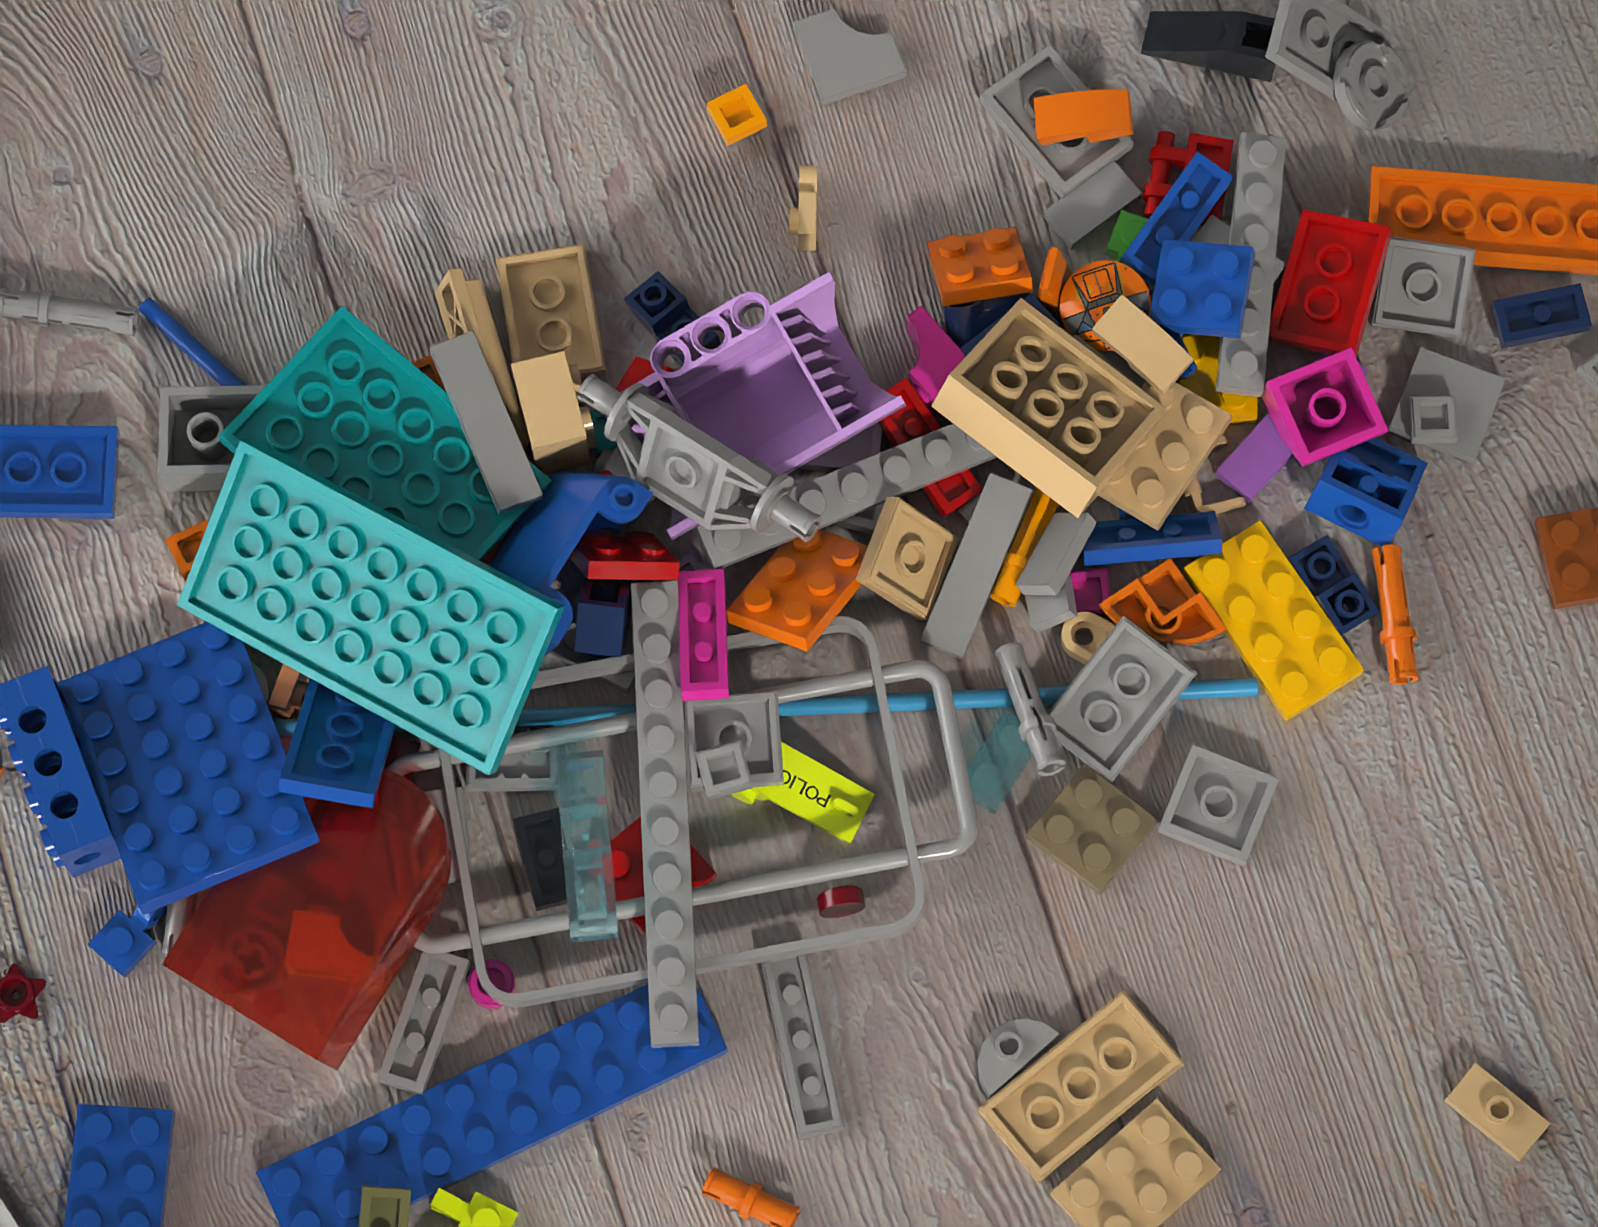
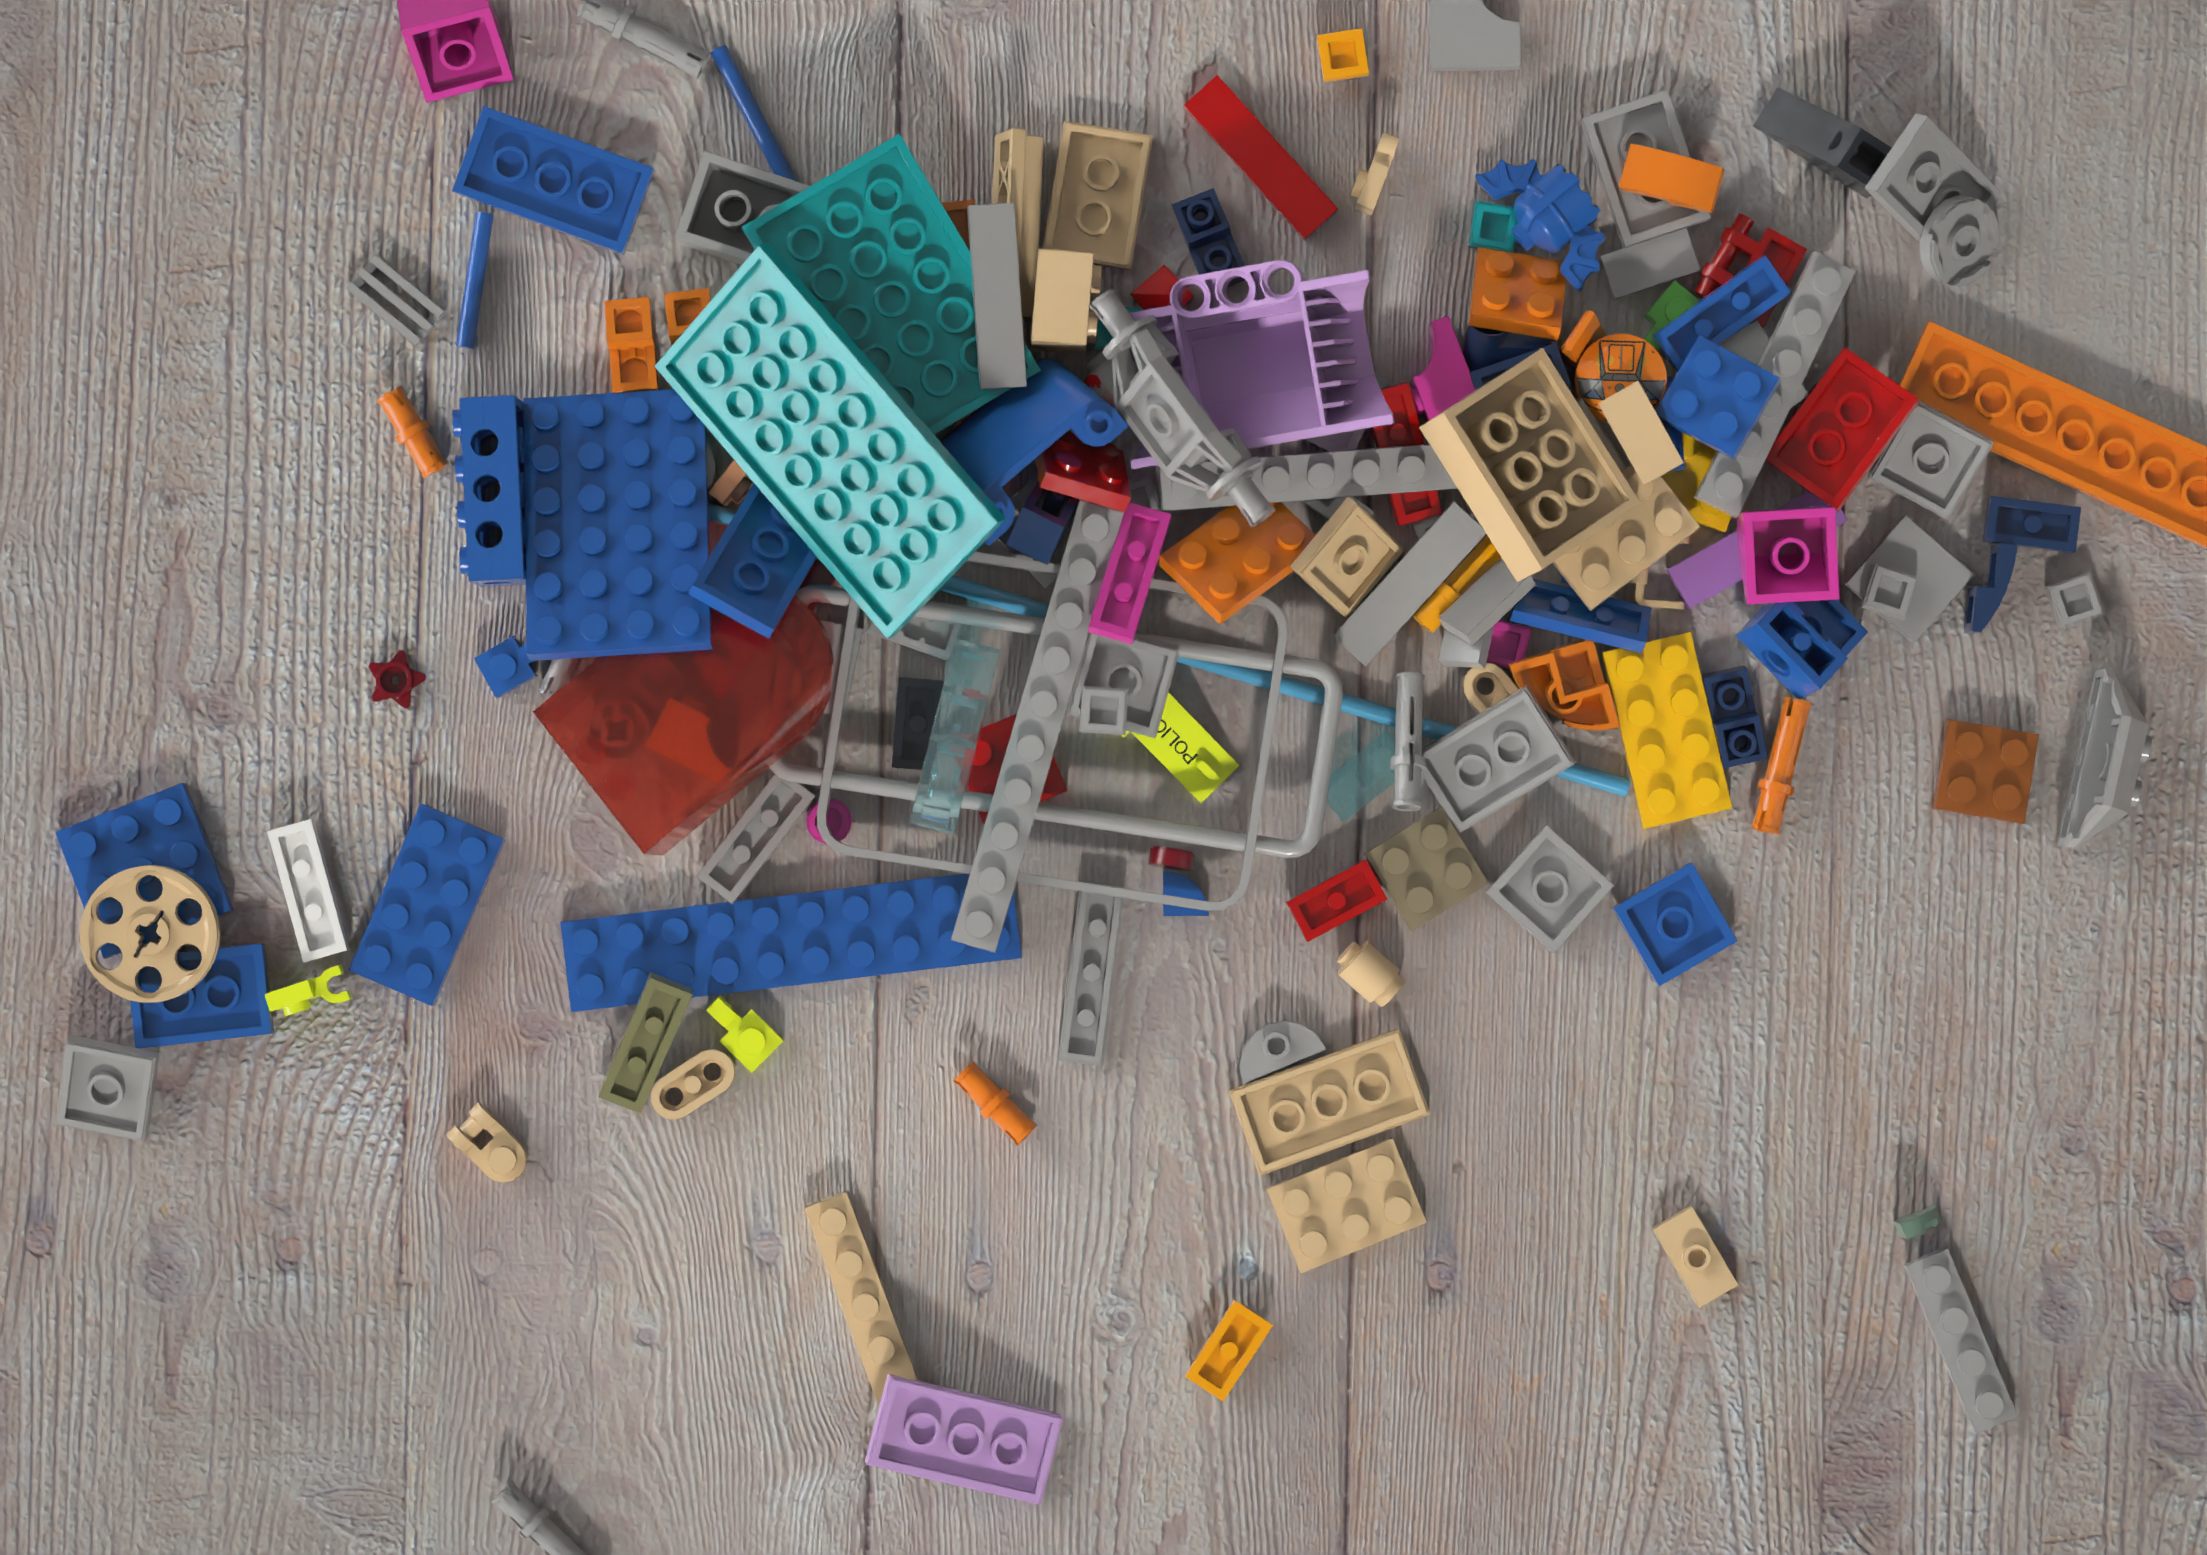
camera: 15 degrees right, 15 degrees up
(148, 597) = (631, 345): none -> orange slope
(693, 231) = (1260, 157): none -> red tile
(865, 950) = (1181, 886): none -> blue tile
(933, 219) = (1492, 227): none -> teal tile
(983, 185) = (1550, 214): none -> blue helmet
(1016, 887) = (1336, 900): none -> red plate
(1074, 945) = (1370, 973): none -> tan brick
(1351, 797) = (1674, 924): none -> blue plate
(1525, 394) = (1984, 601): none -> dark blue slope

